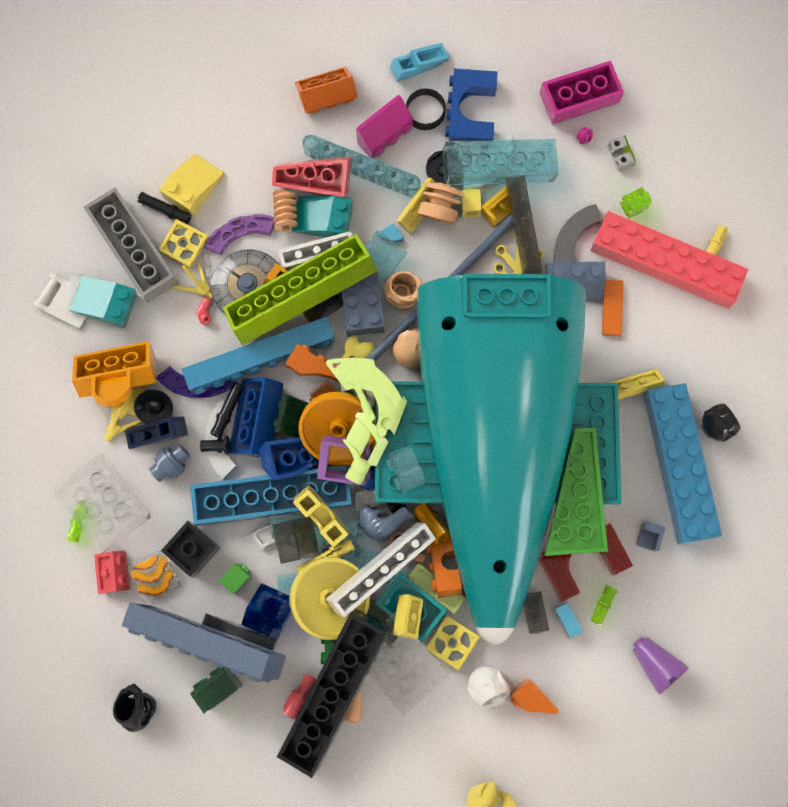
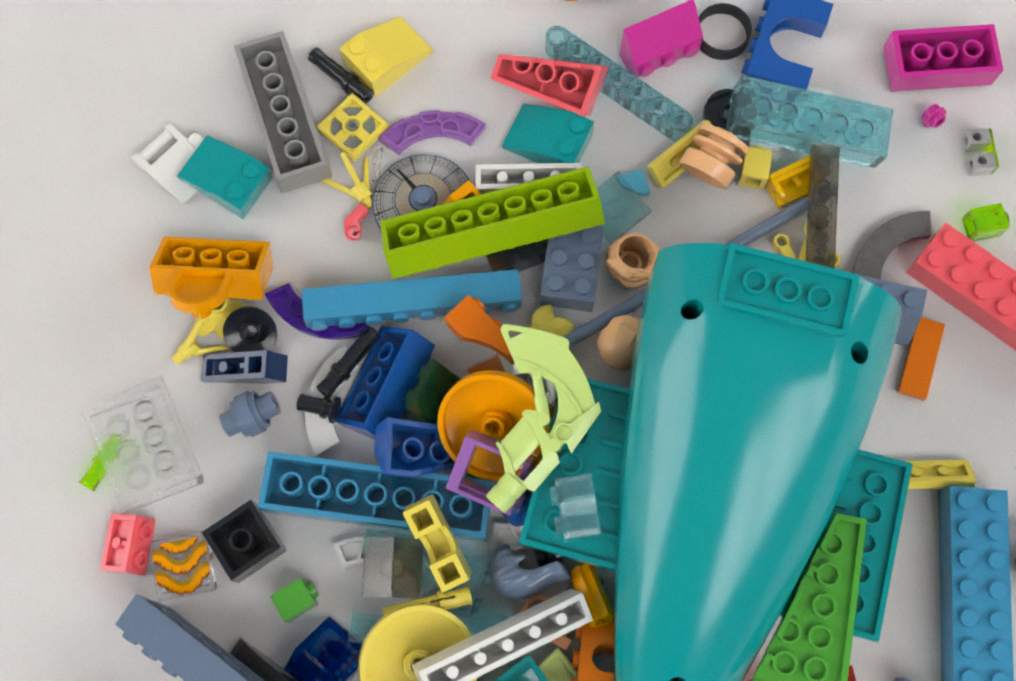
camera: 15 degrees right, 5 degrees down
(284, 211) = (499, 116): light nougat piece -> none

